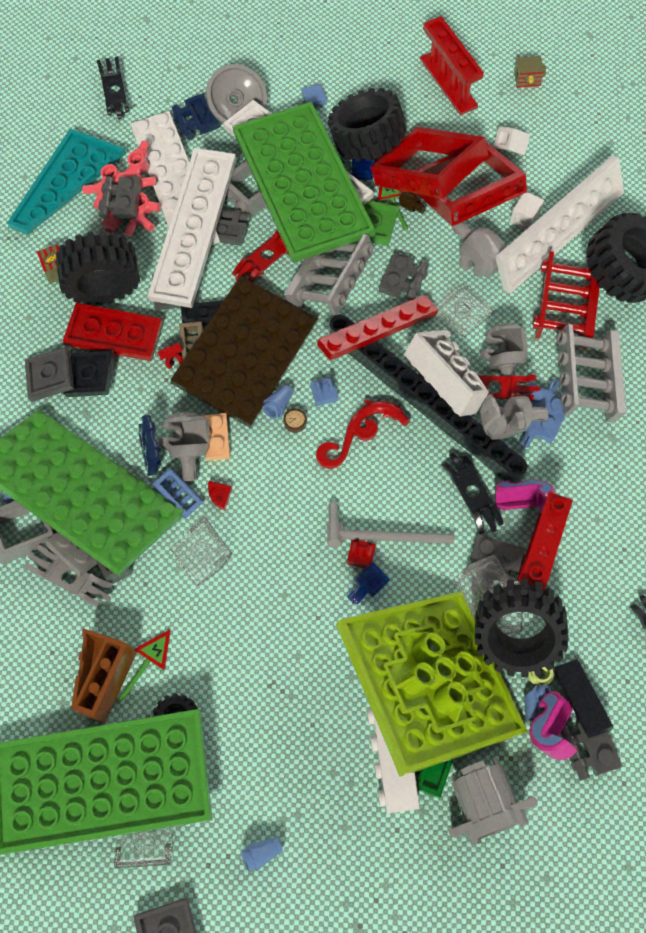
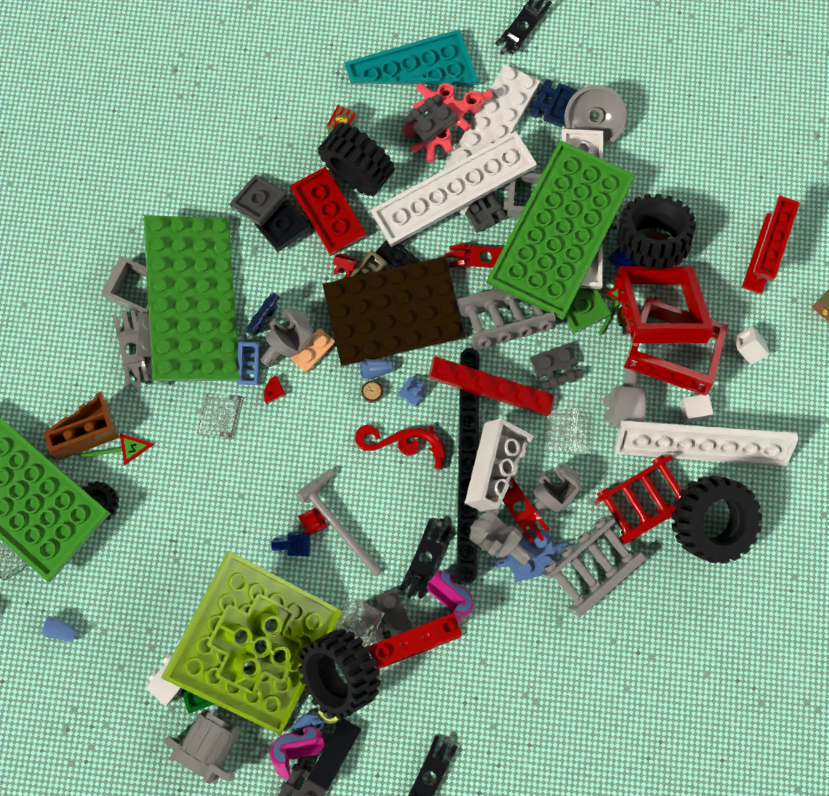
camera: 45 degrees right, 10 degrees up
(314, 94) = (655, 167): medium blue tile -> none

